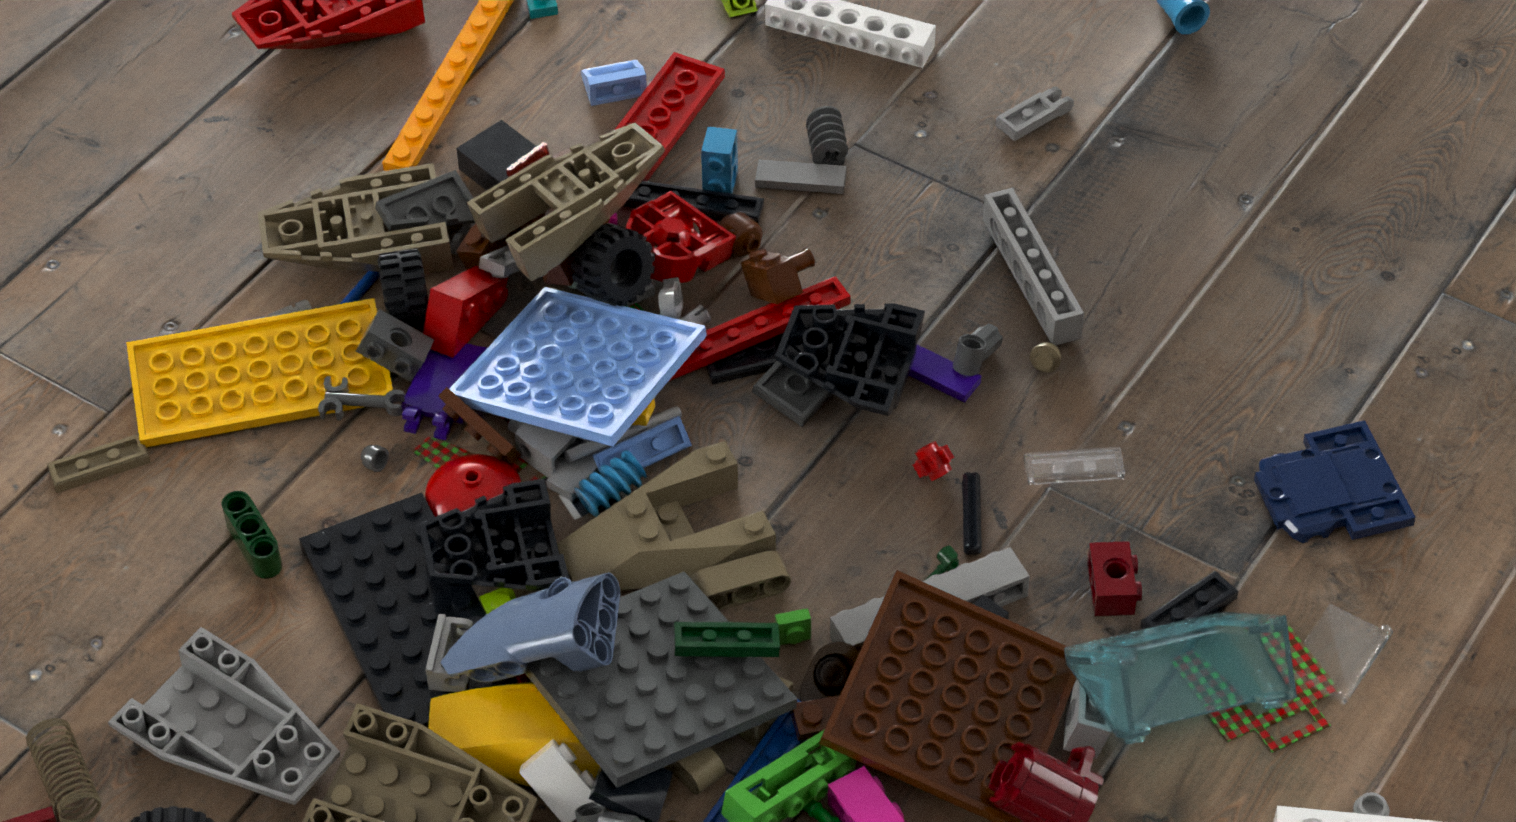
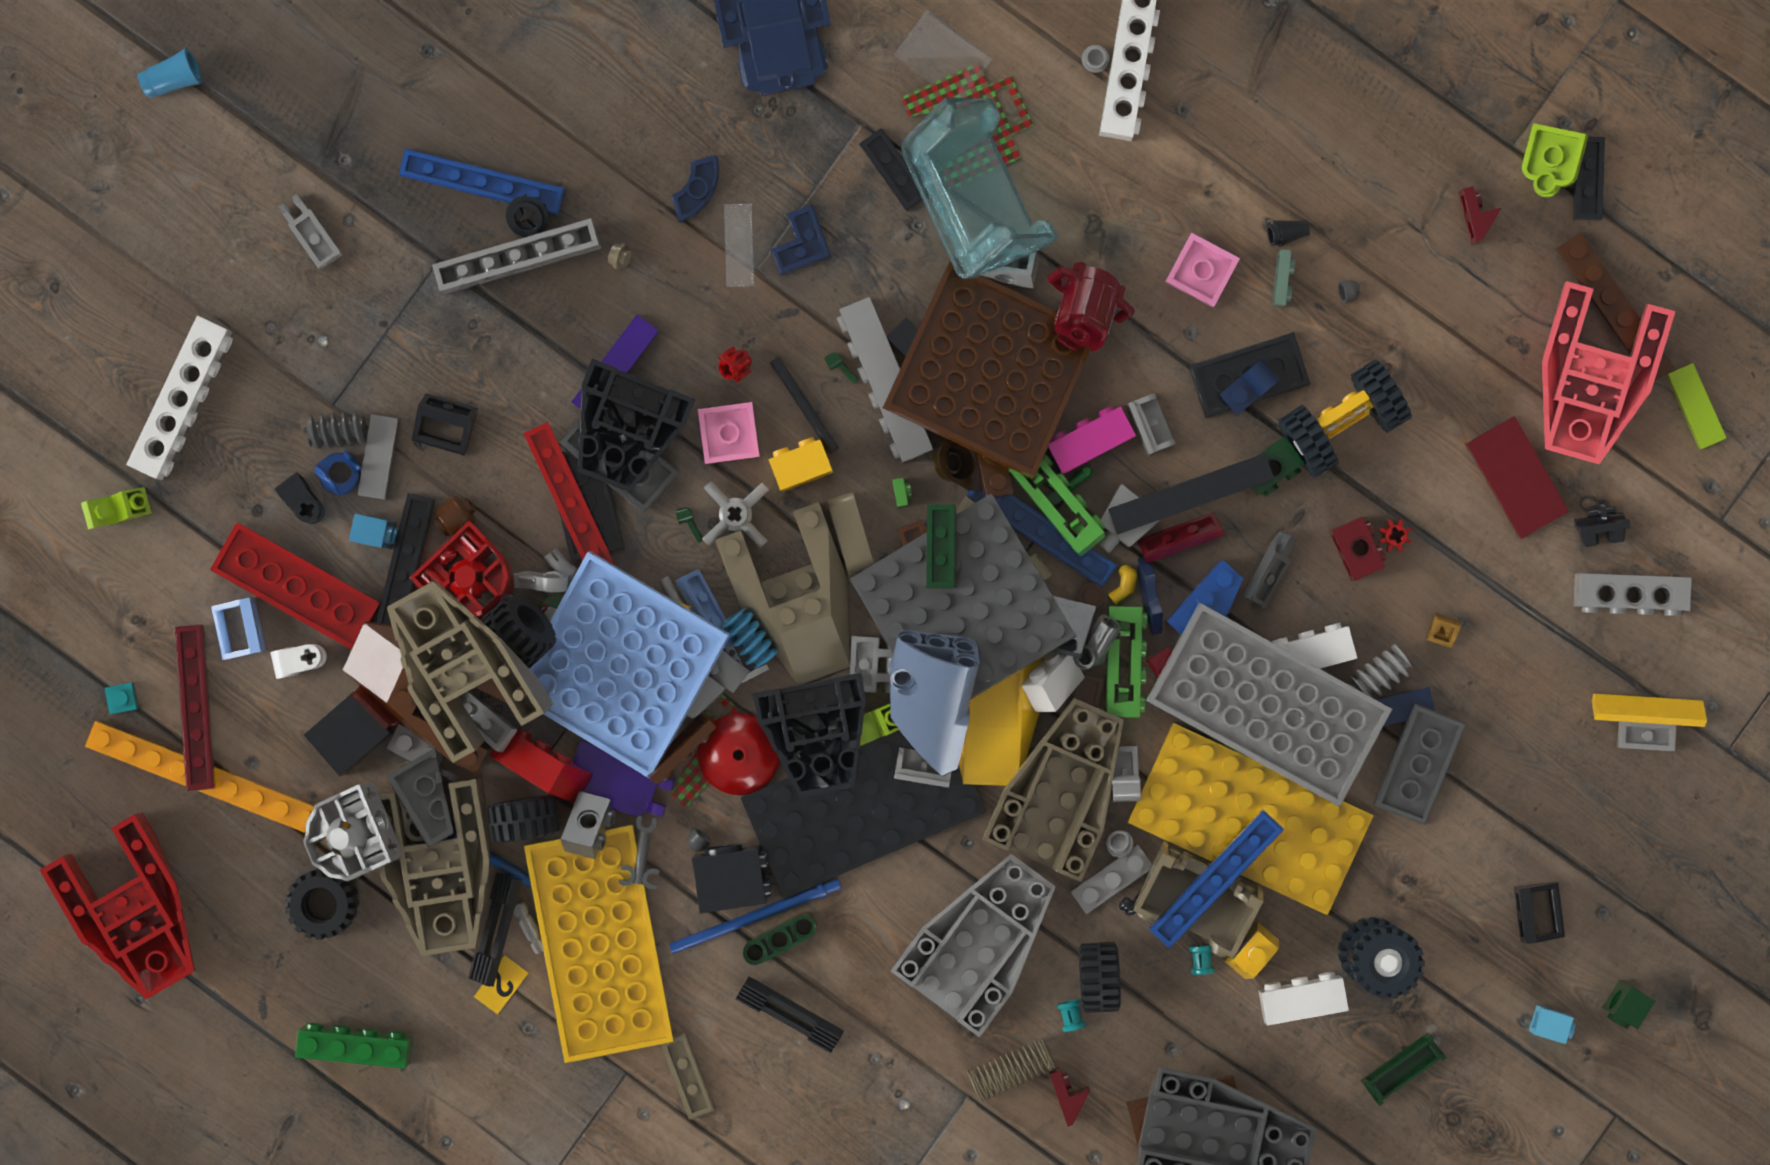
camera: 95 degrees left, 40 degrees up
(165, 178) = (354, 1047): none -> green brick
(185, 517) = (823, 1034): none -> black container
(221, 301) = (506, 983): none -> yellow sticker
(241, 280) = (504, 891): none -> black container
(306, 574) = (757, 915): none -> blue bar
(321, 146) = (303, 917): none -> black tyre
(326, 474) = (731, 877): none -> black brick
(396, 148) = (358, 841): none -> light grey connector
(531, 48) = (195, 707): none -> dark red tile
(580, 121) = (294, 660): none -> white piece
(751, 432) = (685, 515): none -> dark green hand
(752, 116) = (297, 496): none -> black piece
(758, 472) = (746, 514): none -> light grey bar
(775, 276) = (520, 487): reddish brown brick -> none
(779, 130) = (323, 467): none -> blue piece
(818, 519) = (800, 465): none -> yellow brick
(852, 228) = (447, 412): none -> black tile
(852, 462) = (728, 433): none -> bright pink plate
(891, 535) = (804, 405): none -> black bar
(971, 513) = (786, 336): black axle -> none
(975, 349) = (610, 315): dark grey piece -> none
(1080, 529) = (809, 243): none -> dark blue tile
(1087, 269) = (525, 227): none -> black gear
(1110, 246) = (477, 180): none -> blue tile
(1113, 578) = (879, 237): dark red brick -> none
(1134, 427) = (699, 188): none -> dark blue tile

